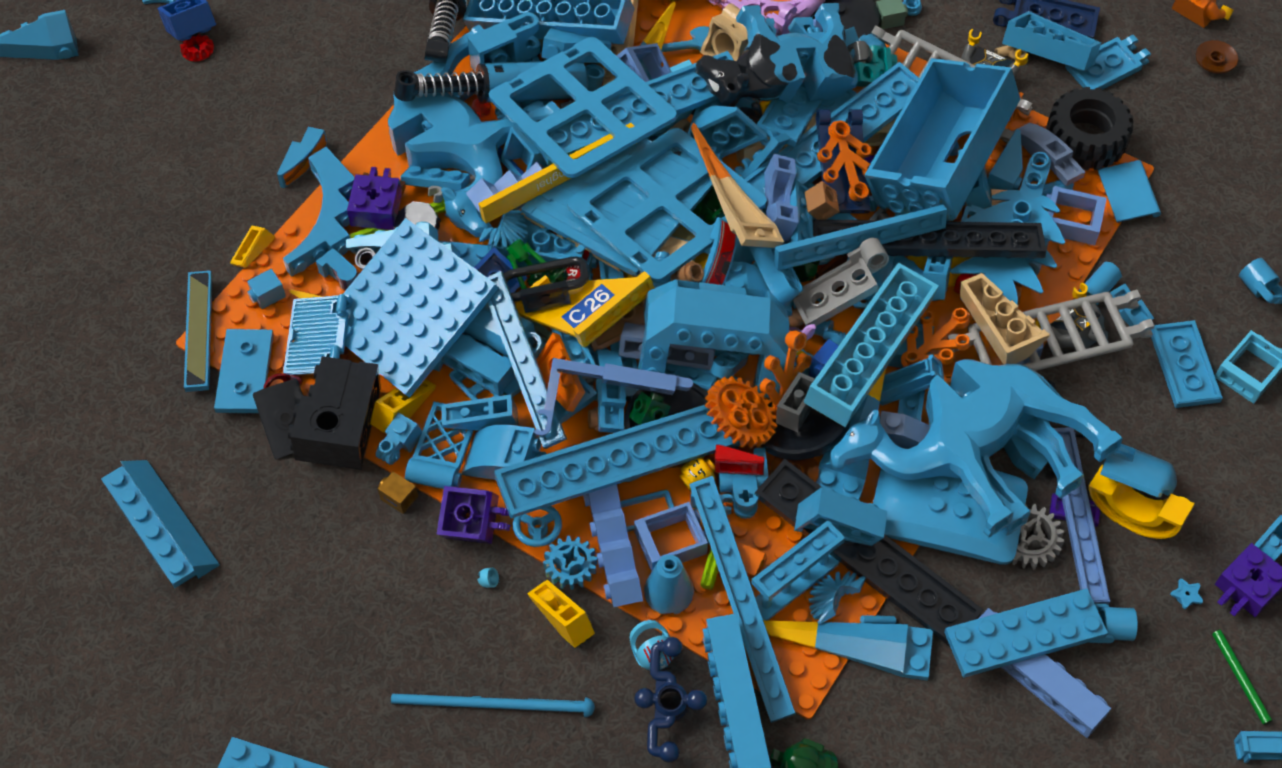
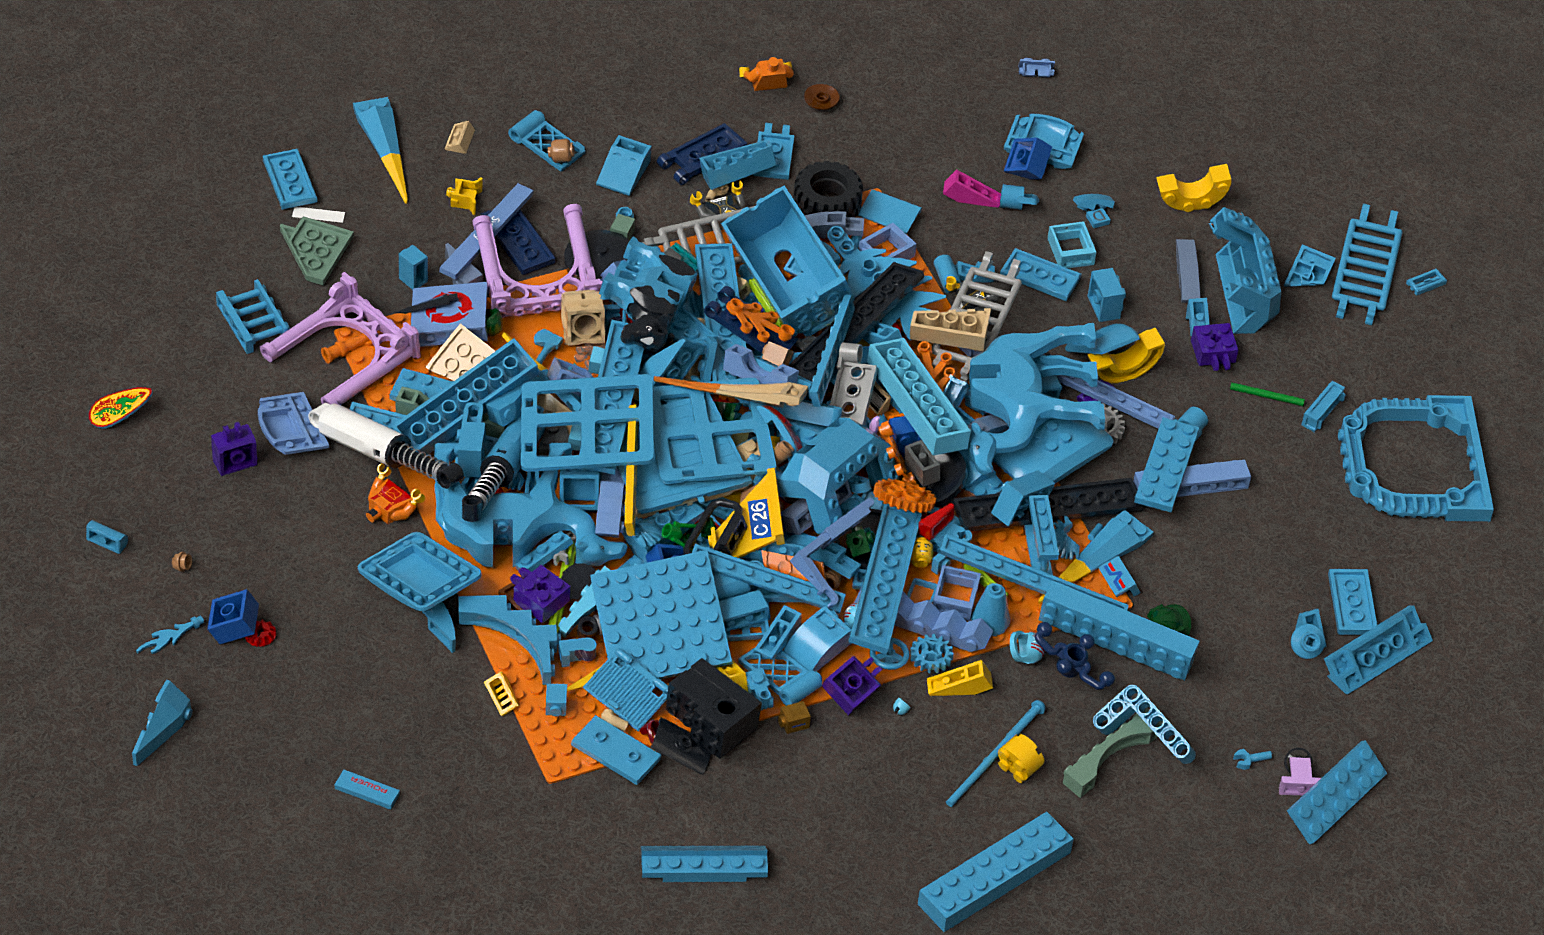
camera: 60 degrees left, 10 degrees down
(71, 218) = (367, 789): none -> dark azure tile
(198, 331) = (555, 759): tile -> none
(276, 347) = (608, 716): none -> tan arm
(336, 105) = (419, 571): none -> dark azure wedge
(410, 41) = (390, 501): none -> torso
(490, 729) = (1020, 757): none -> yellow brick
(832, 681) = (1118, 577): none -> dark azure panel
(1187, 600) = (1196, 385): dark azure plate -> none
(1212, 435) = (1106, 294): none -> dark azure brick
(1228, 238) = (970, 191): none -> dark pink slope

